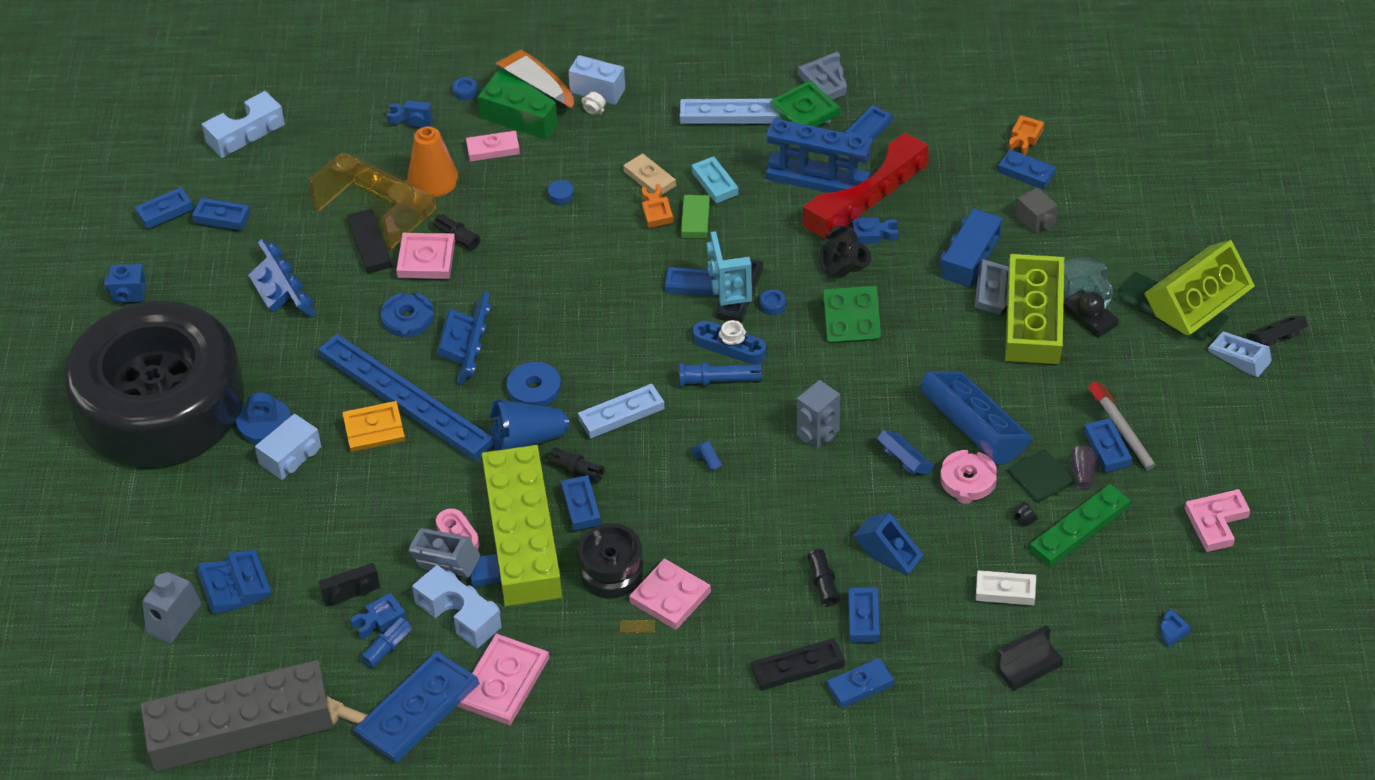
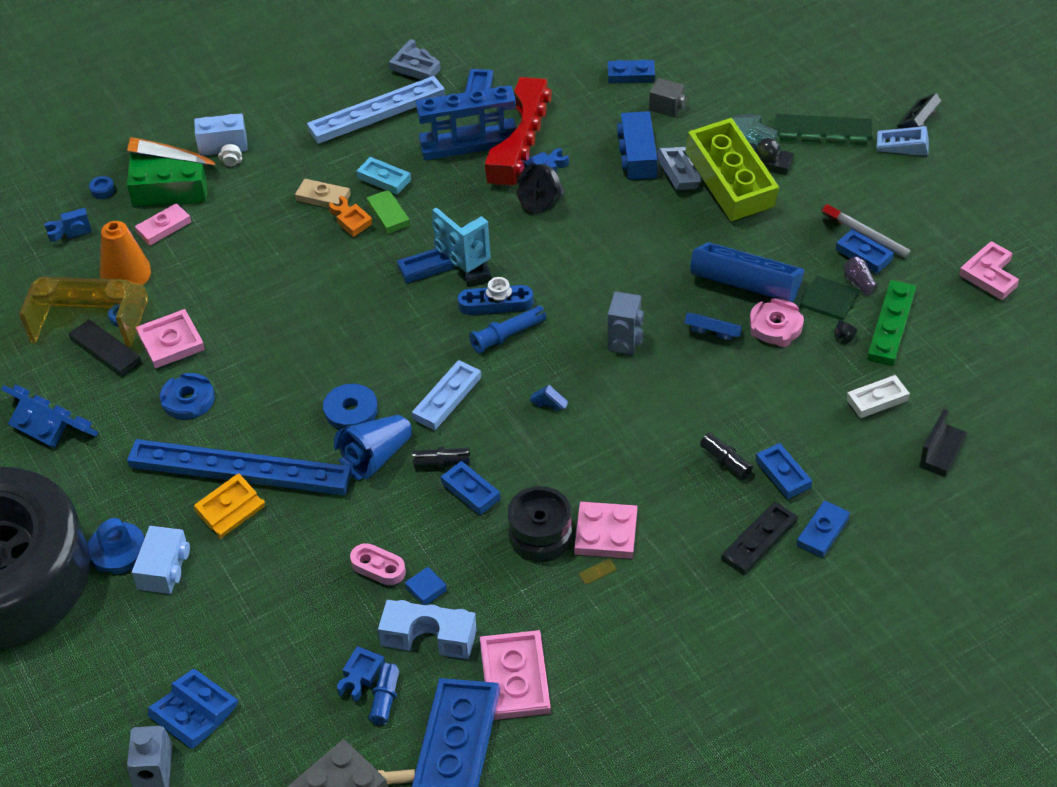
camera: 30 degrees left, 0 degrees up
(349, 584) = (311, 657): black plate -> none
(446, 550) = (385, 582): sand blue brick -> none
(461, 234) = (193, 308): black axle -> none
(461, 337) = (258, 392): blue bracket -> none
(521, 525) = (434, 530): lime brick -> none
(560, 192) = (254, 238): blue tile -> none
(772, 302) = (506, 253): blue tile -> none
(805, 105) = (418, 85): green tile -> none
(851, 314) = (582, 234): green bracket -> none
(888, 543) = (757, 402): blue slope -> none
(1025, 132) = (610, 44): orange plate -> none
(1173, 628) = (1025, 369): blue tile -> none
(1200, 288) = (839, 104): lime slope -> none

